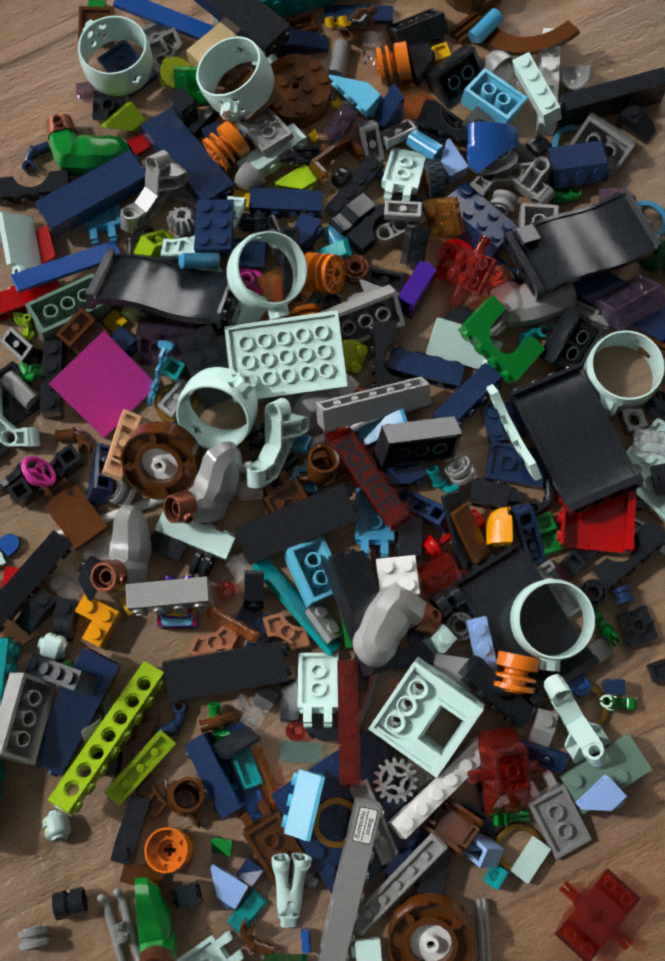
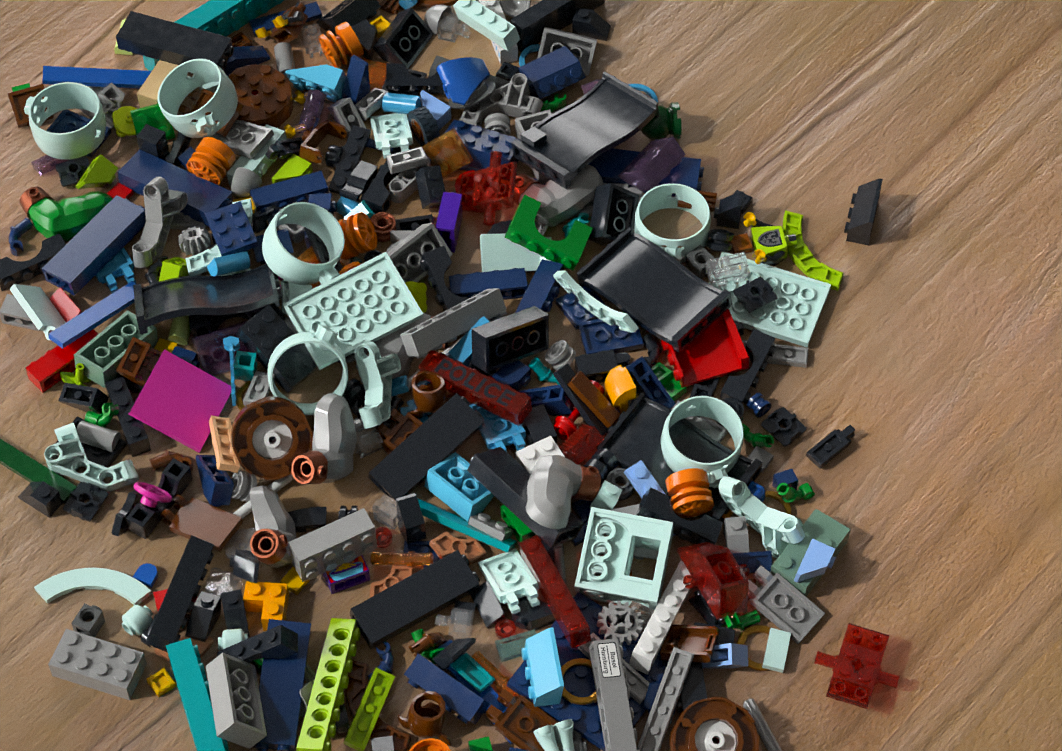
camera: 25 degrees left, 20 degrees down
(199, 537) = (332, 496): light aqua brick -> none
(493, 97) = (447, 43): medium azure slope -> none
(495, 877) = (751, 677): teal slope -> none

